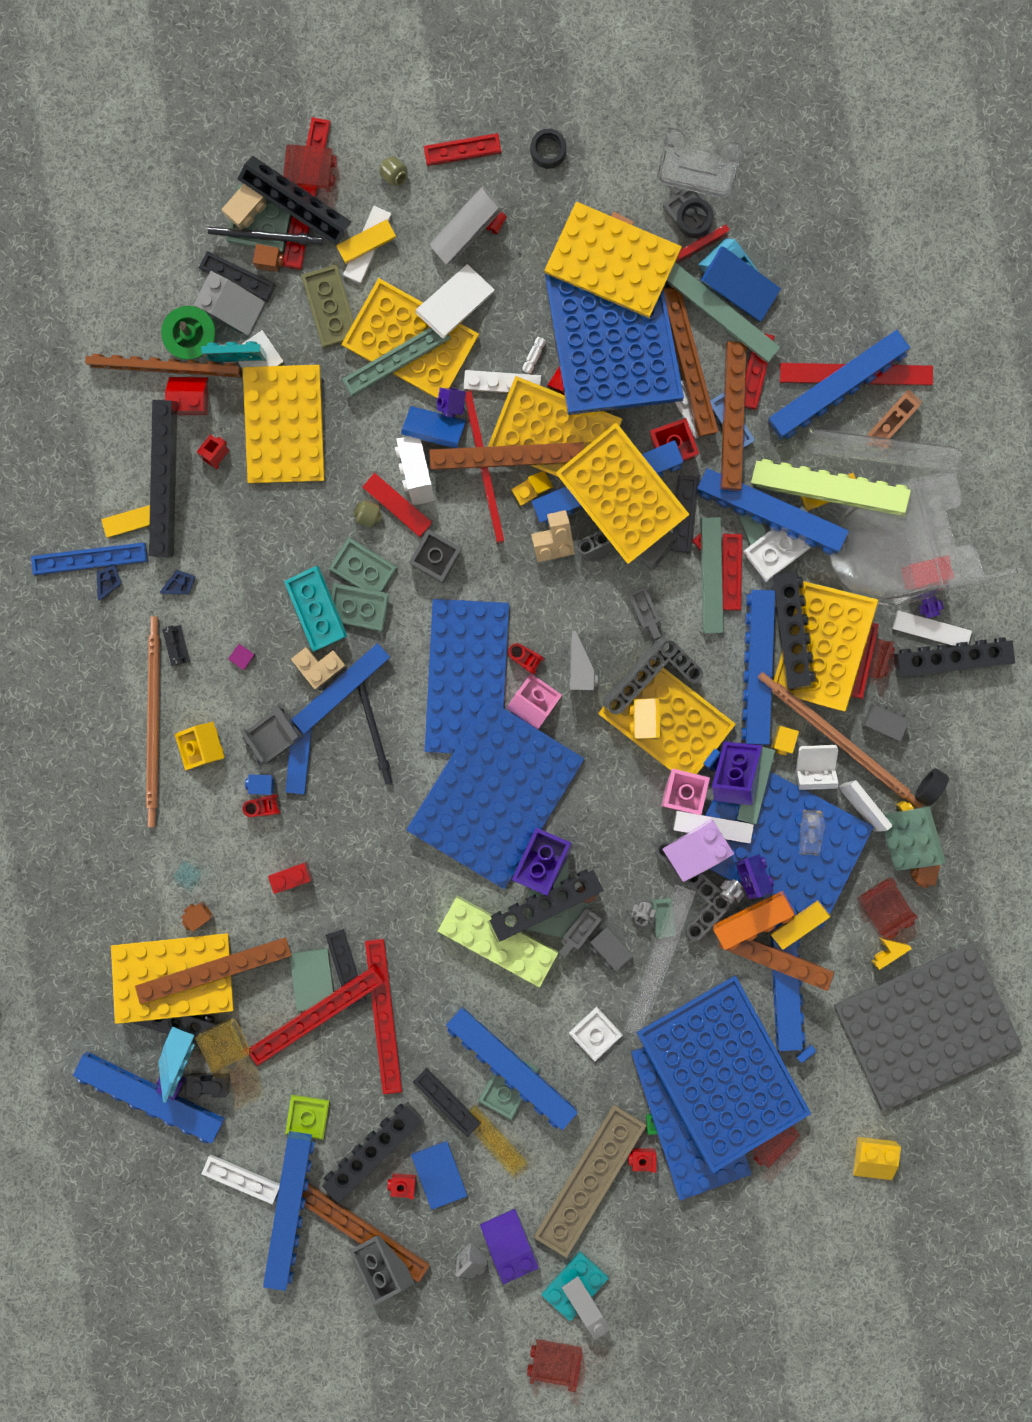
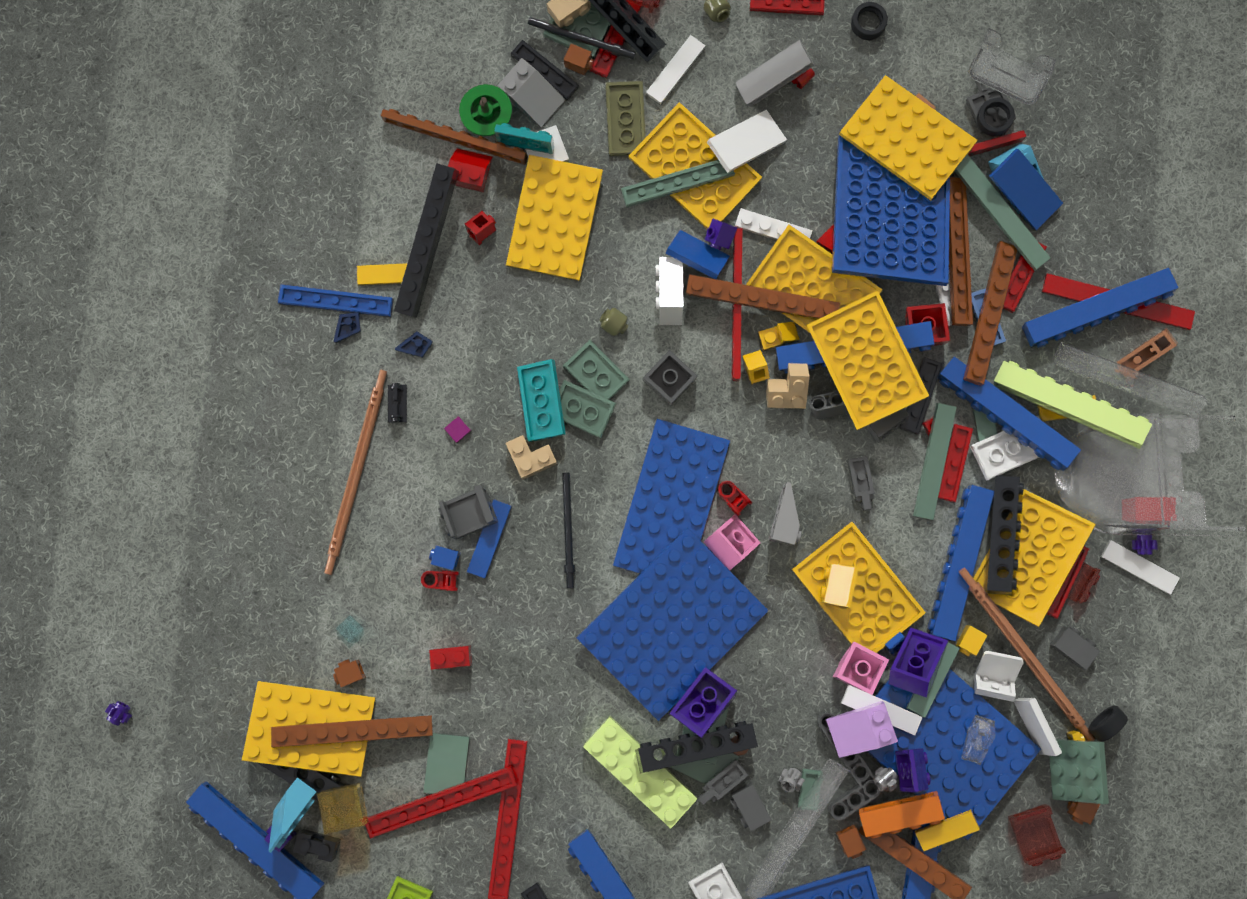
camera: 15 degrees right, 5 degrees down
(199, 745) = (395, 505): yellow slope -> none
(341, 688) = (546, 483): blue tile -> none
(343, 960) = (482, 752): black tile -> none
(366, 241) = (675, 66): yellow tile -> none
(397, 504) = (644, 320): red tile -> none
(517, 525) = (756, 367): none -> yellow brick
(534, 355) = (810, 209): white axle -> none
(650, 672) = (853, 540): dark grey beam -> none
(713, 957) = (851, 841): none -> dark orange brick
(894, 951) = (1033, 881): yellow slope -> none
(1003, 655) = (1206, 609): black brick -> none

